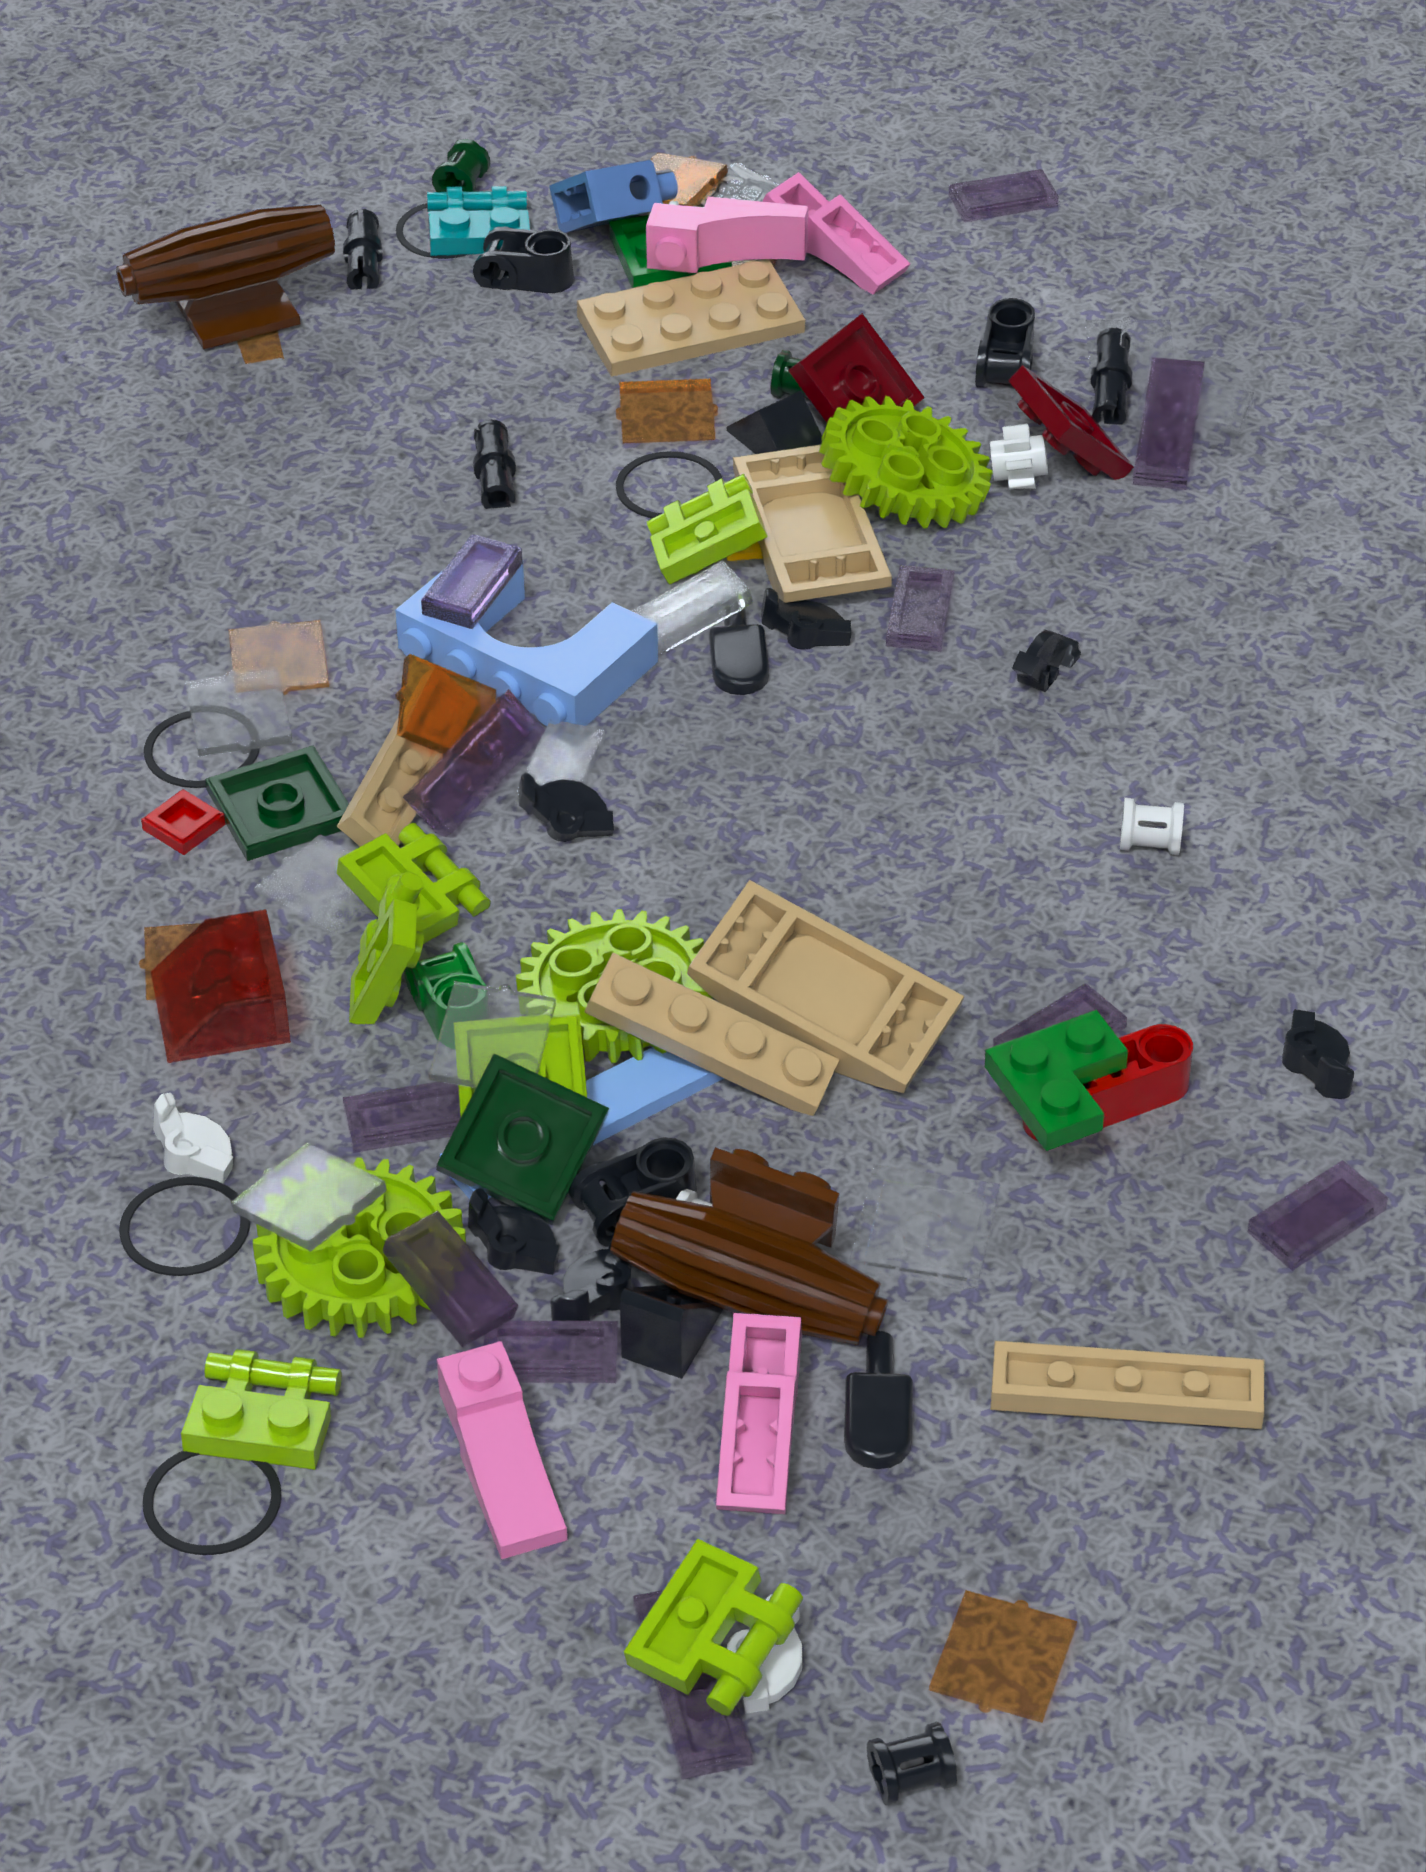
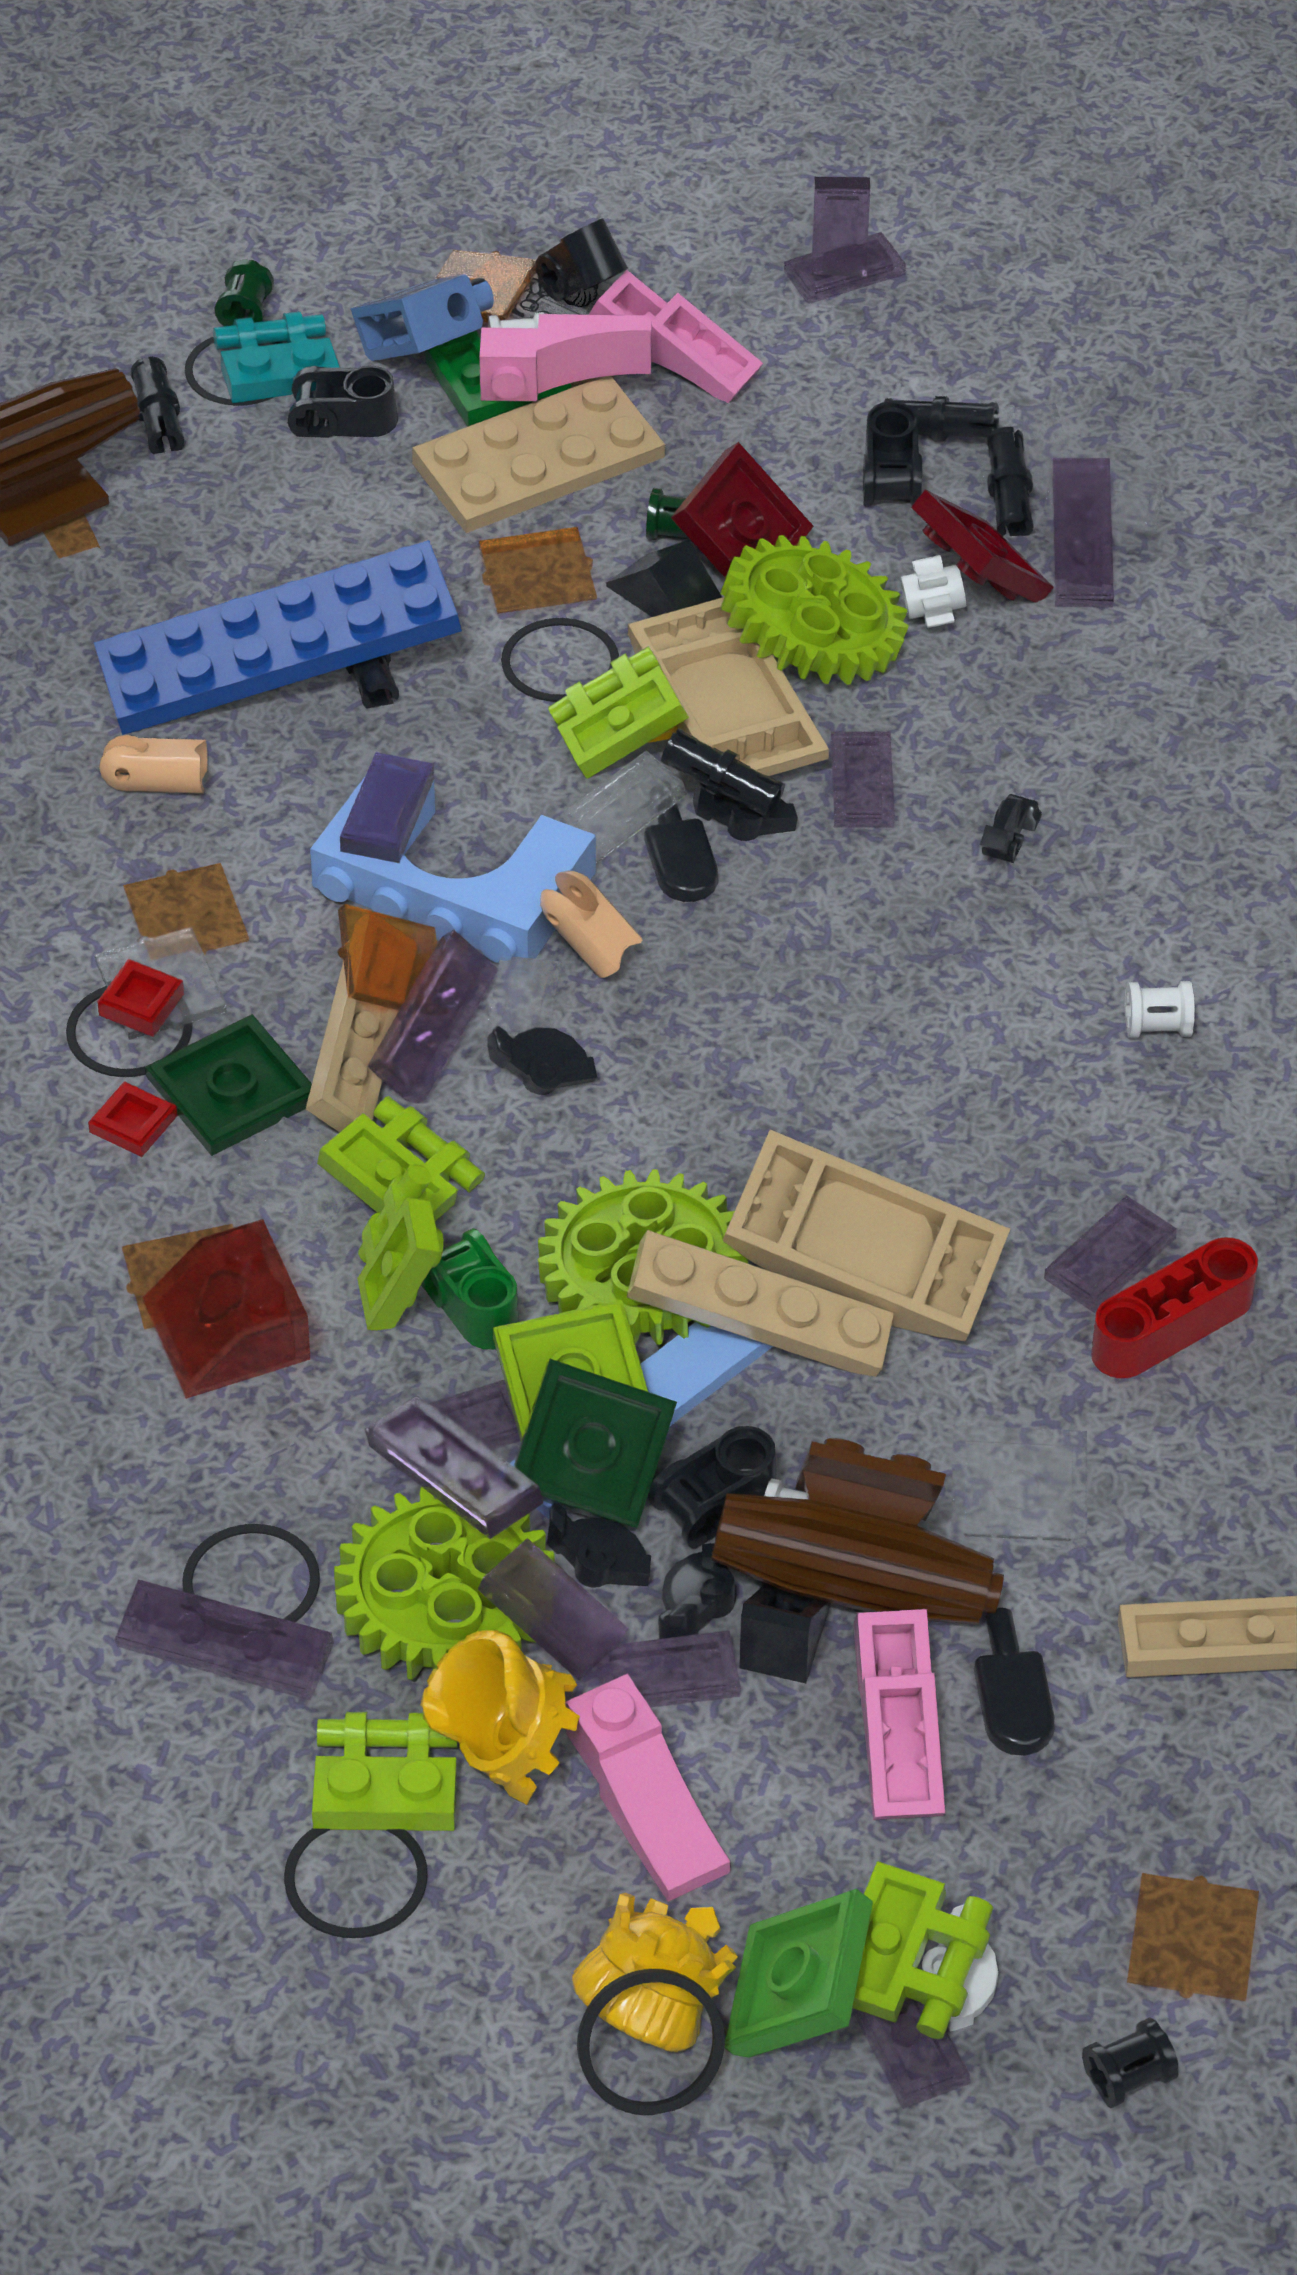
camera: 10 degrees left, 5 degrees up
(144, 1273) = (224, 1639): none -> clear purple tile
(191, 1142) = (237, 1487): white piece -> none
(214, 720) = (140, 997): none -> red tile
(281, 533) = (155, 764): none -> light nougat piece
(308, 1196) = (385, 1537): clear piece -> none
(373, 1358) = (499, 1709): none -> yellow hair
(389, 1142) = (454, 1466): none -> clear purple tile
(414, 438) = (277, 637): none -> plate
(444, 1746) = (680, 2099): none -> black piece
(466, 1619) = (652, 1940): none -> yellow hair
(489, 1022) = (531, 1325): clear piece -> none
(602, 1636) = (799, 1974): none -> bright green tile
(633, 695) = (588, 922): none -> light nougat piece
(760, 162) = (580, 261): none -> black piece
(786, 584) = (722, 773): none -> black pin
(998, 152) = (840, 226): none -> clear purple tile
(1047, 1072) = (1117, 1310): green plate -> none
(1064, 321) = (946, 418): none -> black pin

